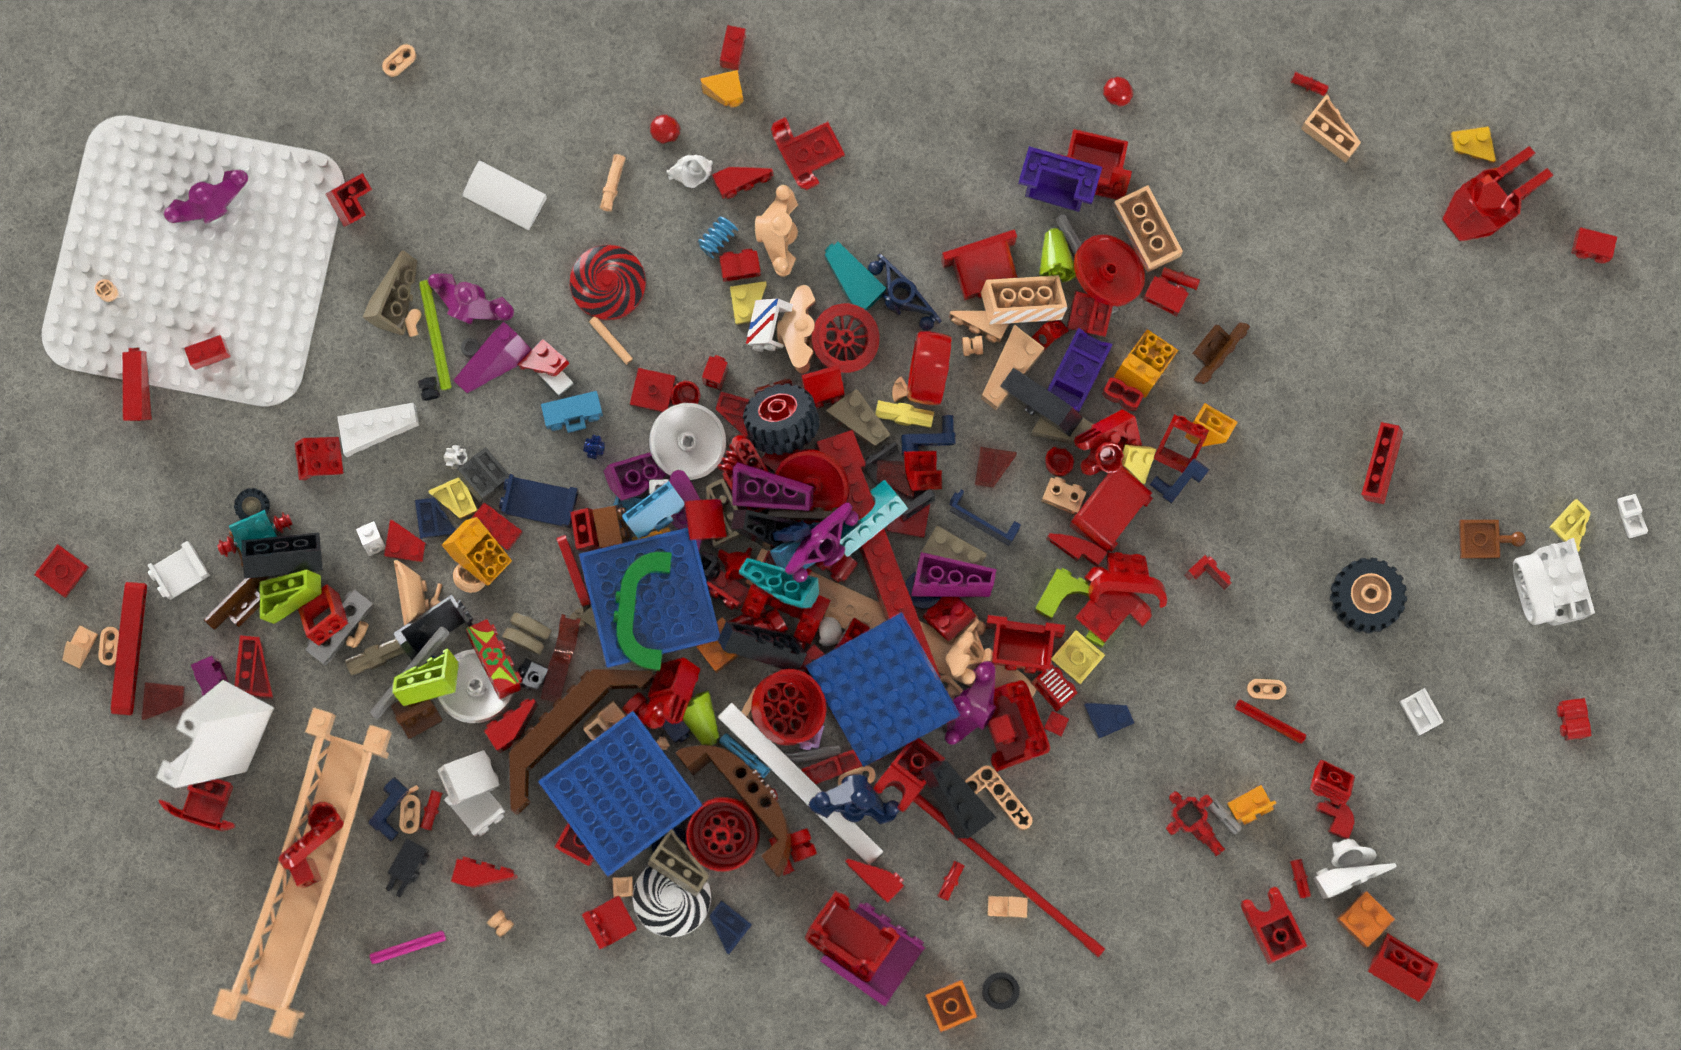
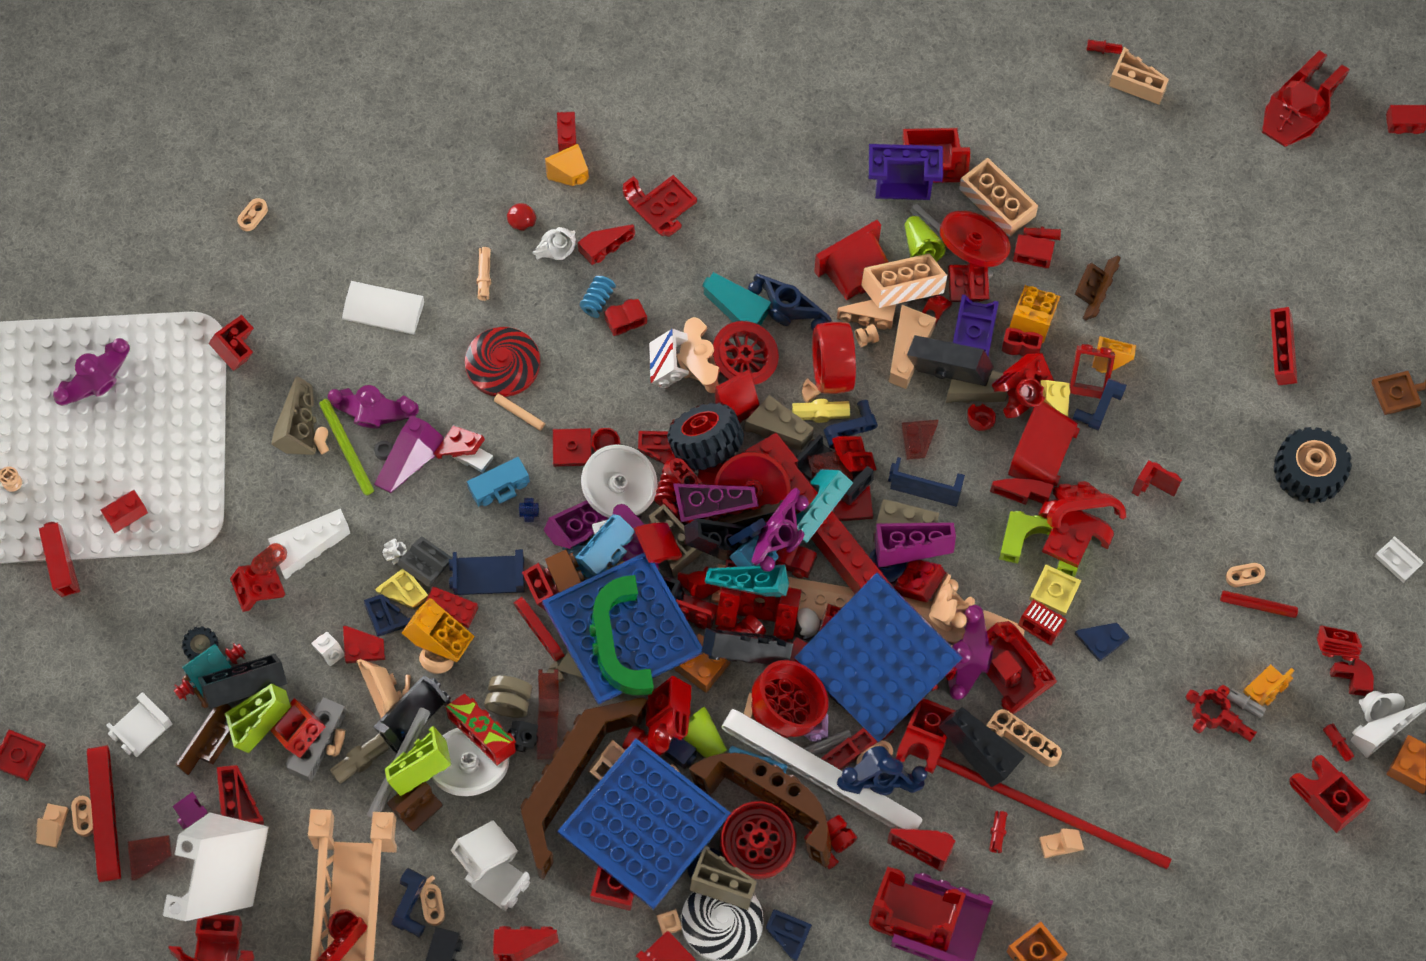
camera: 15 degrees left, 15 degrees down
(334, 438) = (270, 558): none -> clear red plate
(429, 388) = (351, 494): black wheel -> none
(431, 810) = (453, 895): red pin -> none
(510, 728) = (510, 794): red slope -> none
(715, 372) = (629, 413): red brick -> none
(744, 300) = (638, 347): light yellow wing -> none
(778, 230) = (653, 278): light nougat piece -> none
(1015, 990) = (1092, 915): black tyre -> none
(1023, 644) = (1000, 587): red windscreen -> none
(1056, 723) = (1054, 657): red plate -> none
(1064, 495) = (995, 446): light nougat brick -> none
(1118, 91) = (933, 91): red hair -> none
(1475, 143) = (1268, 62): yellow wing -> none

